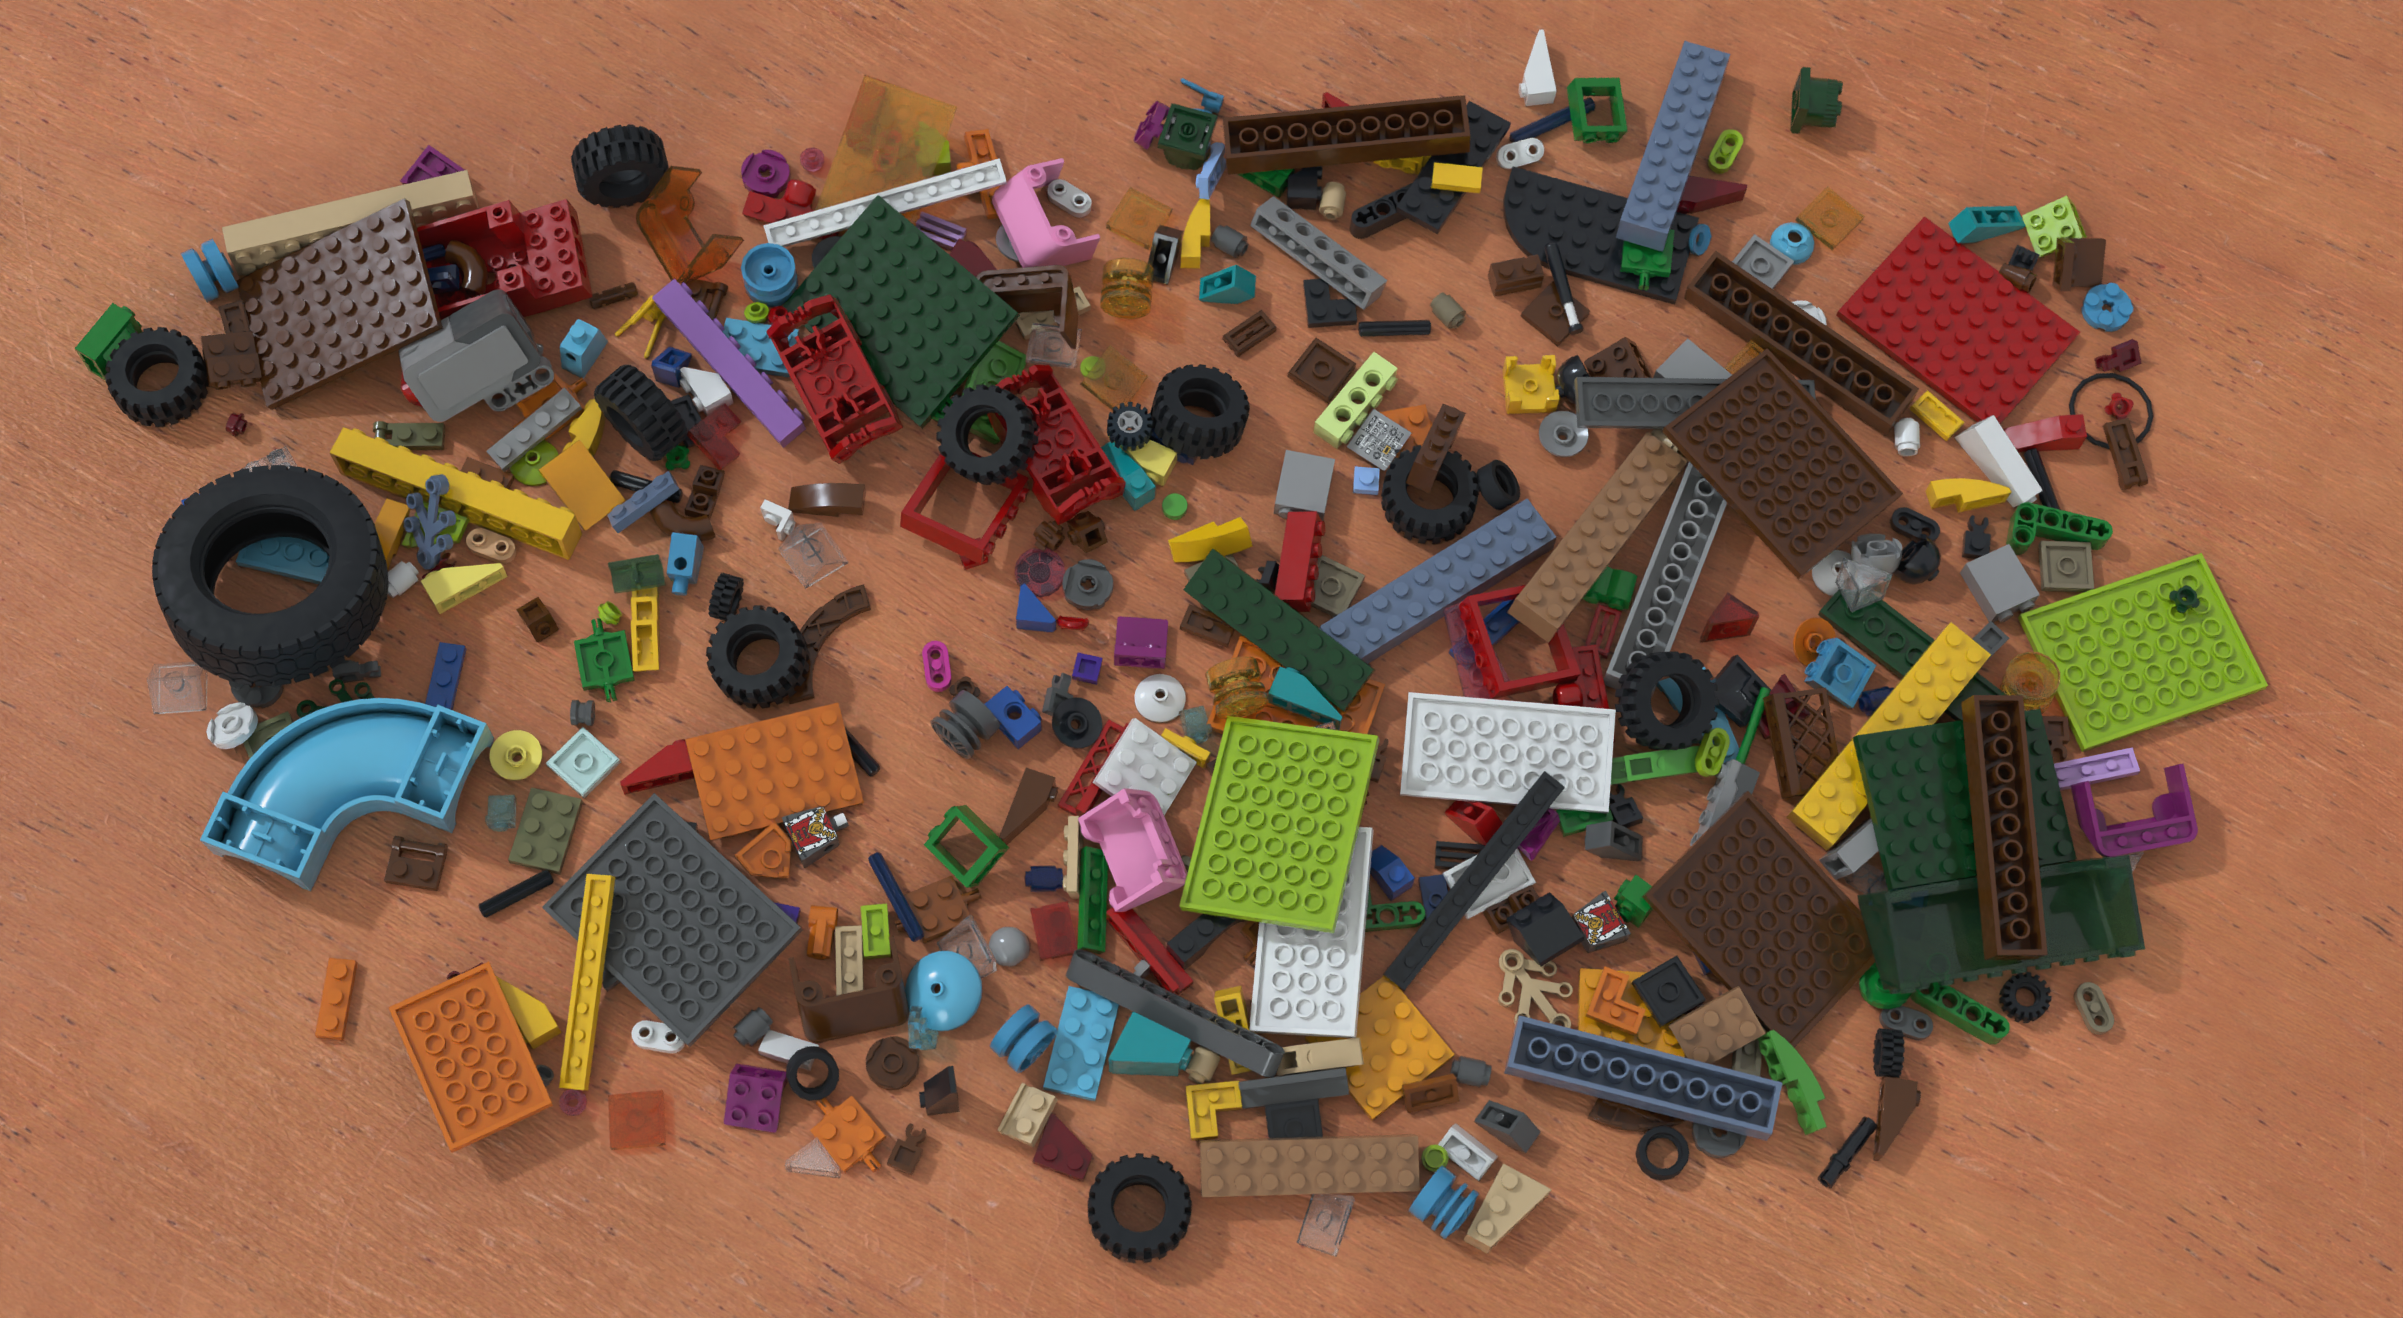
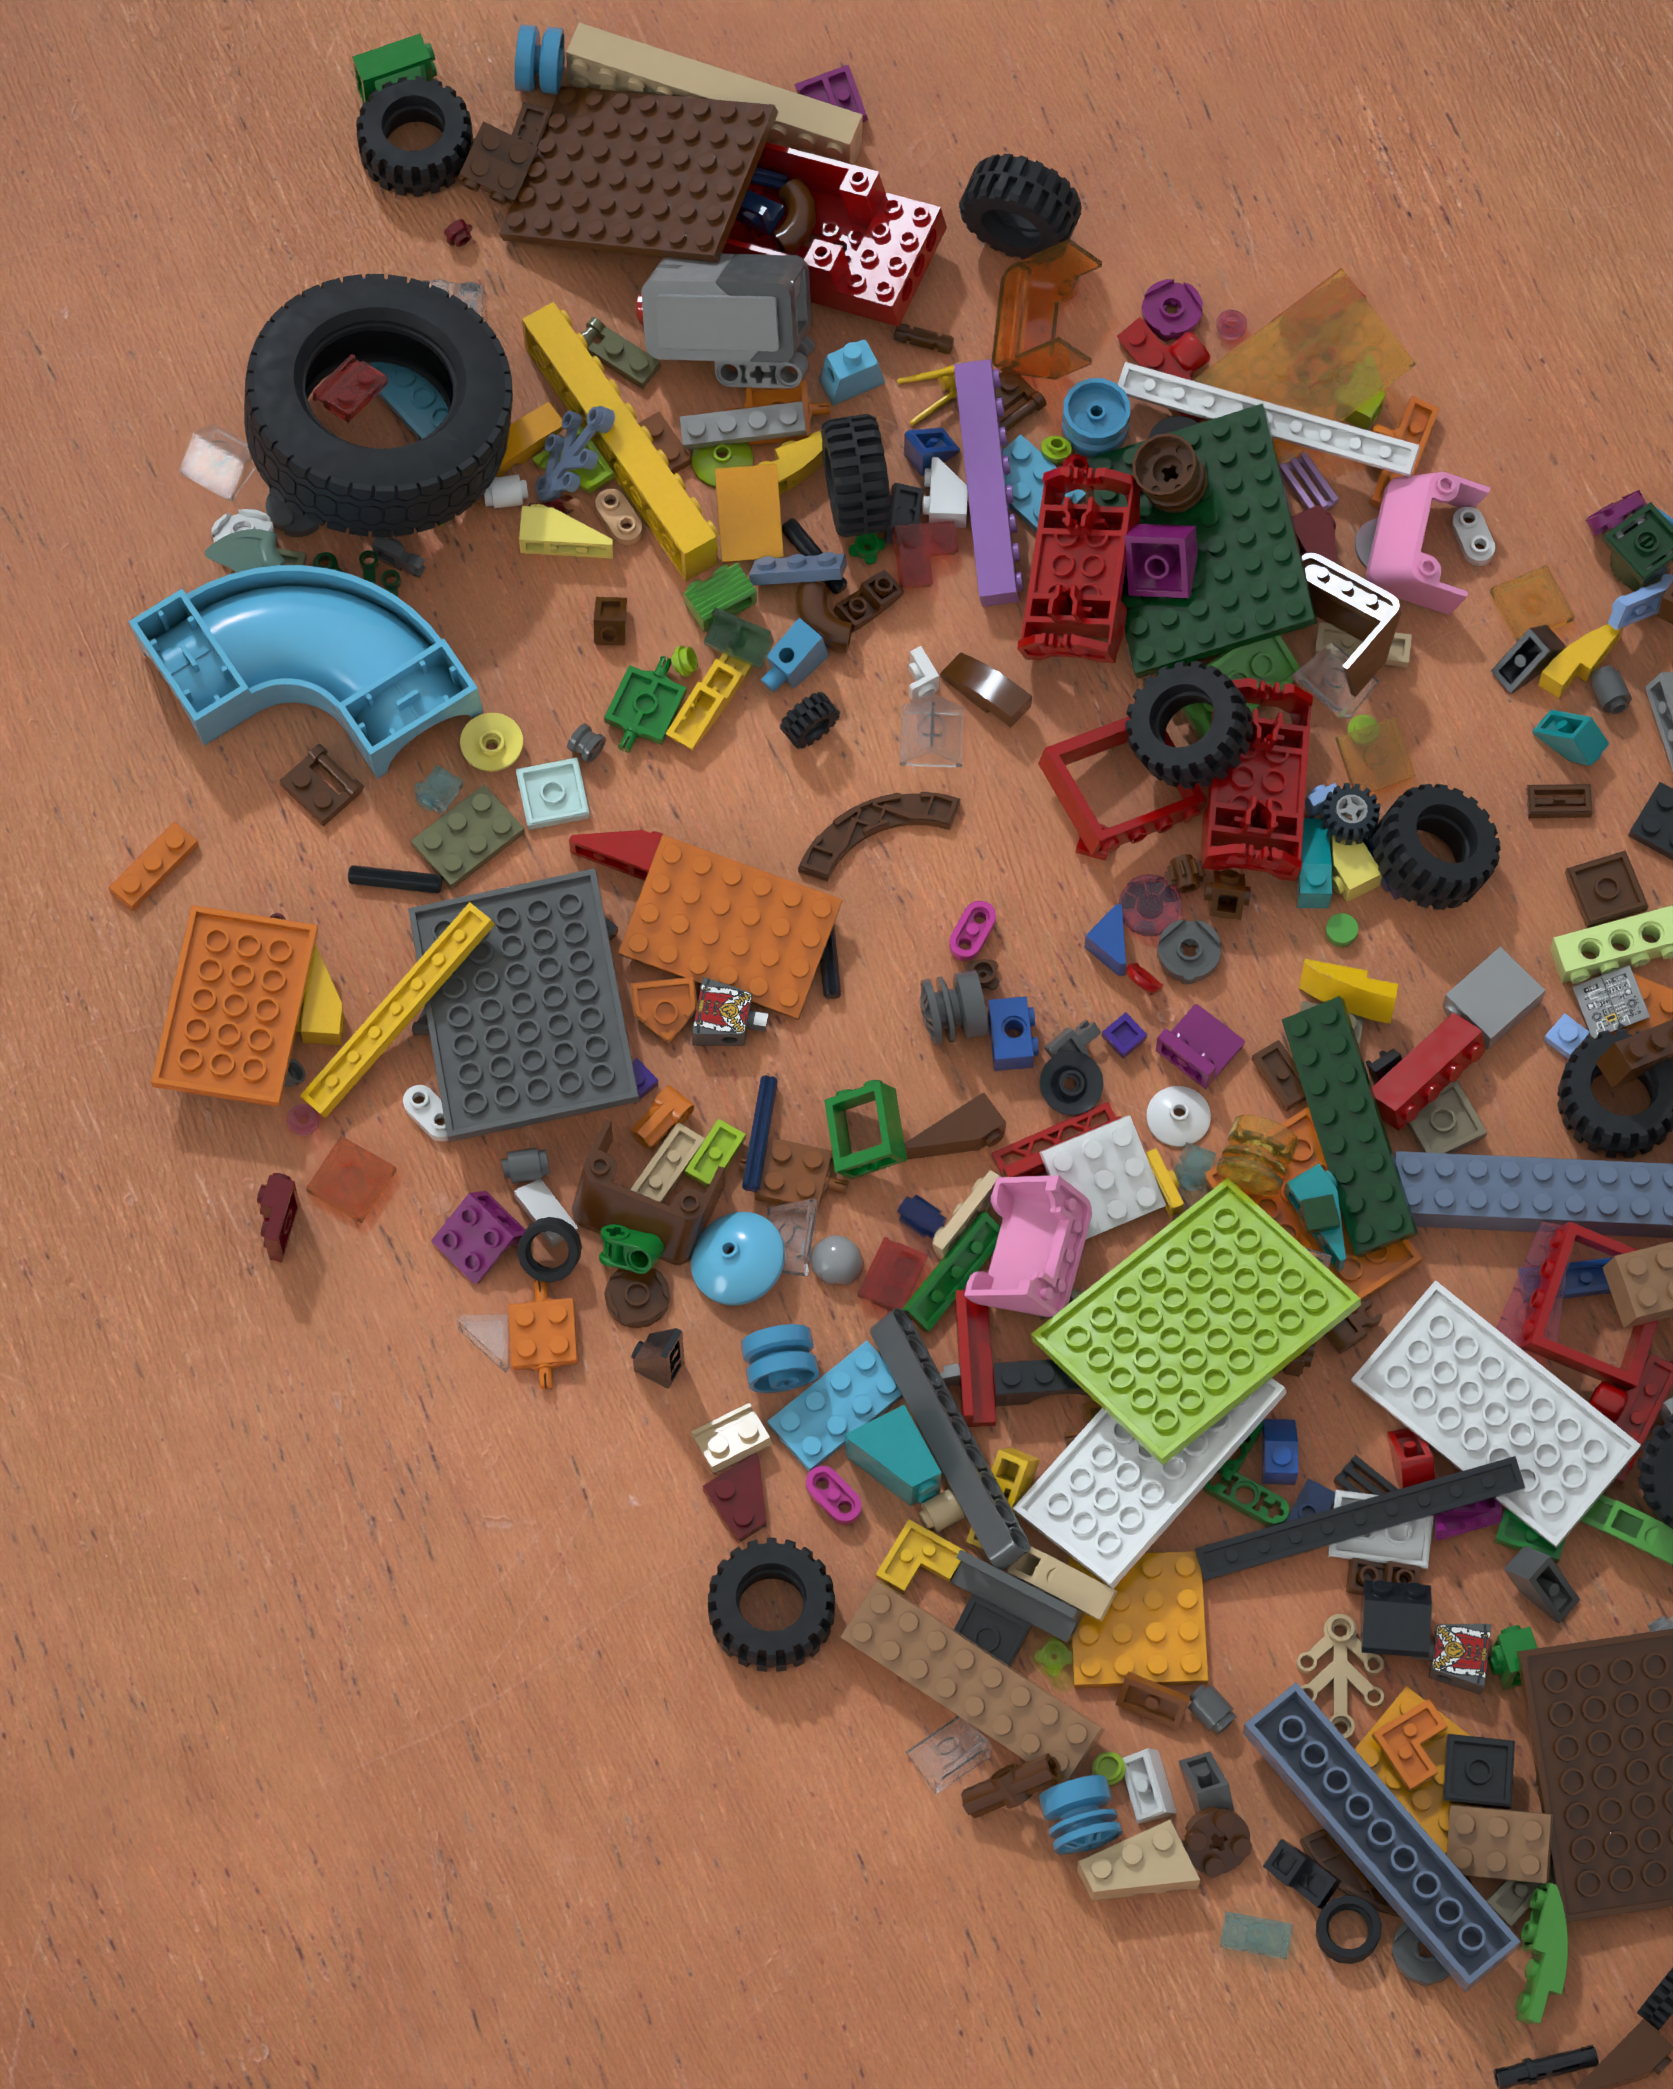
camera: 40 degrees right, 0 degrees up
(246, 736) = (246, 550): none -> sand green arm
(248, 574) = (350, 388): none -> clear red plate
(446, 675) = (480, 619): blue plate -> none
(602, 1175) = (279, 1208): none -> dark red plate
(603, 547) = (726, 590): none -> bright green brick
(740, 632) = (787, 766): black tyre -> none
(843, 268) = (1160, 463): none -> reddish brown wheel
(866, 1035) = (626, 1246): none -> green piece
(886, 339) = (1161, 560): none -> magenta slope
(906, 1153) = (584, 1393): reddish brown plate -> none
(919, 1035) = (682, 1281): clear light blue bracket -> none
(1099, 429) = (1316, 799): none -> light blue plate
(1124, 1102) = (834, 1496): none -> dark pink plate
(1127, 288) = (1458, 668): clear yellow wheel -> none
(1306, 699) = (1320, 1214): none -> dark green tile
(1345, 1102) = (1064, 1656): none -> clear neon green plate
(1386, 1215) = (1011, 1785): none -> reddish brown piece
(1553, 1155) = (1233, 1848): none -> reddish brown plate
(1607, 1137) = (1302, 1873): none -> black slope
(1607, 1199) = (1256, 1935): none -> clear light blue plate
(1624, 810) = (1578, 1558): black plate -> none

